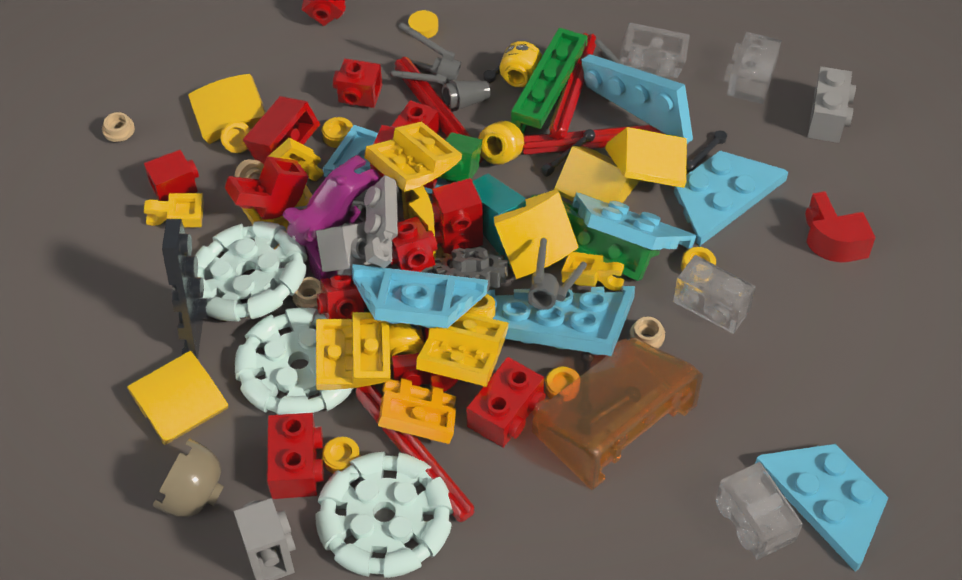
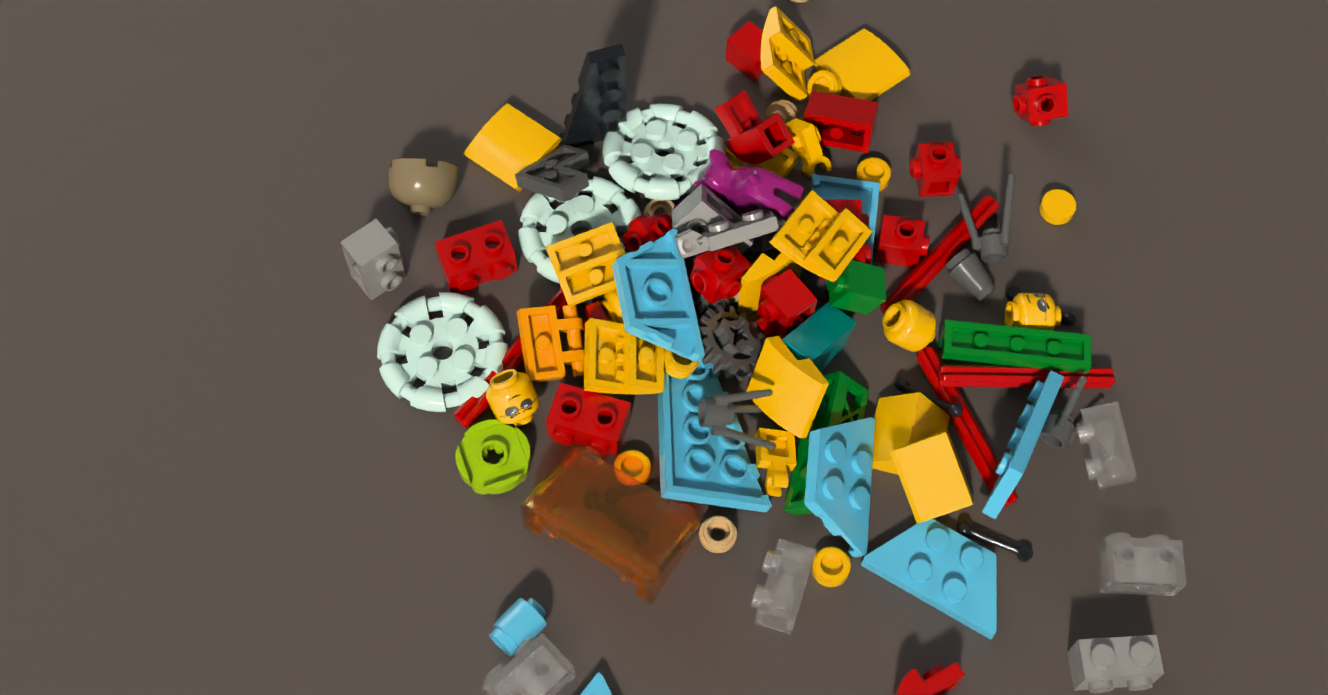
camera: 70 degrees right, 10 degrees up
(179, 206) = (716, 73): yellow plate -> none
(194, 145) = (786, 54): none -> yellow slope
(235, 364) = (556, 174): none -> dark grey plate
(338, 453) = (495, 296): yellow tile -> none
(464, 455) = (512, 397): none -> yellow head
(516, 513) = (488, 477): none -> lime plate
(698, 510) = (517, 624): none -> medium azure brick

